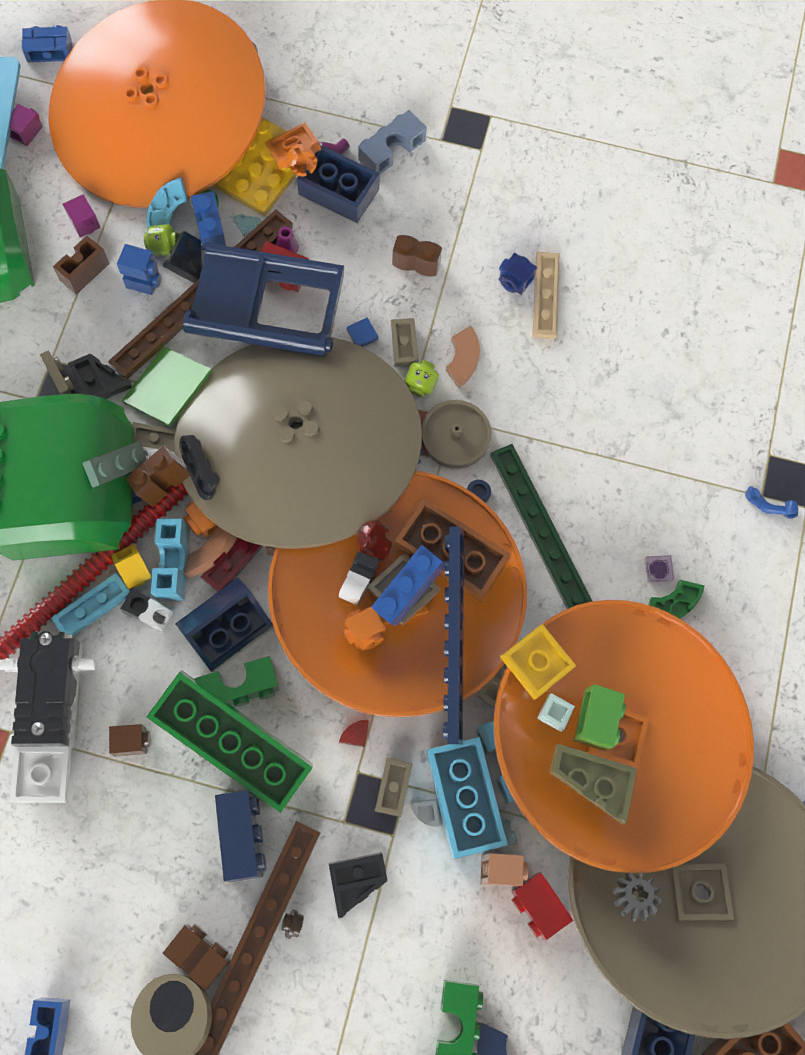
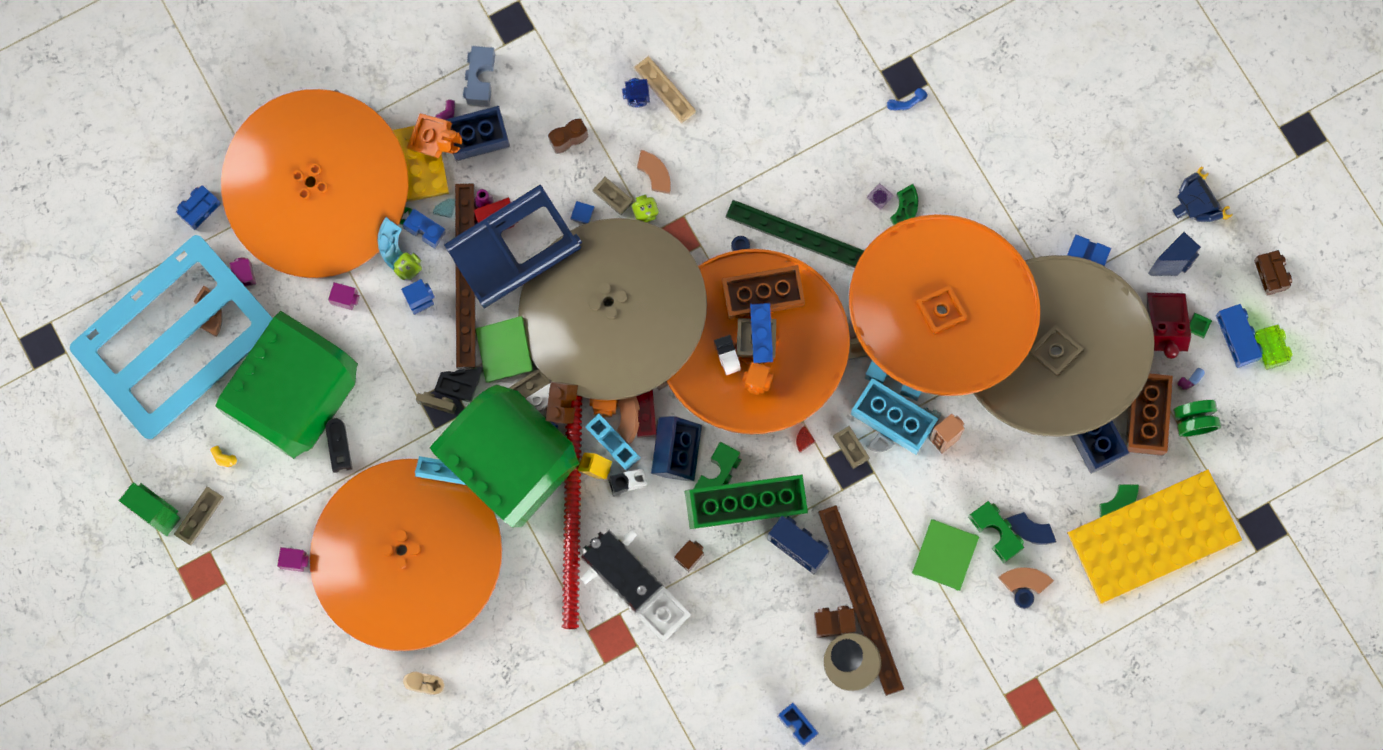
camera: 35 degrees left, 5 degrees up
(83, 266) = (380, 333): reddish brown brick -> none
(91, 606) = (594, 507): medium azure plate -> none
(114, 464) = (536, 416): sand green plate -> none
(185, 257) = (435, 262): black wing -> none
(198, 466) = (580, 376): black plate -> none
(292, 924) = (867, 562): dark brown plate -> none
(356, 879) = (877, 511): black wing -> none
(372, 540) = (714, 327): clear red hair -> none
(381, 998) = (945, 554): none -> bright green piece
(454, 645) = (804, 330): dark blue plate -> none
(456, 434) = (695, 222): dark tan piece -> none
(538, 661) = (867, 309): yellow tile -> none
(542, 906) = (983, 434): red brick -> none
(556, 712) = (900, 327): light aqua tile -> none
(597, 779) = (952, 341): olive wing -> none
(600, 718) = (925, 308): bright green brick -> none
(645, 891) = (1023, 387): dark grey gear -> none

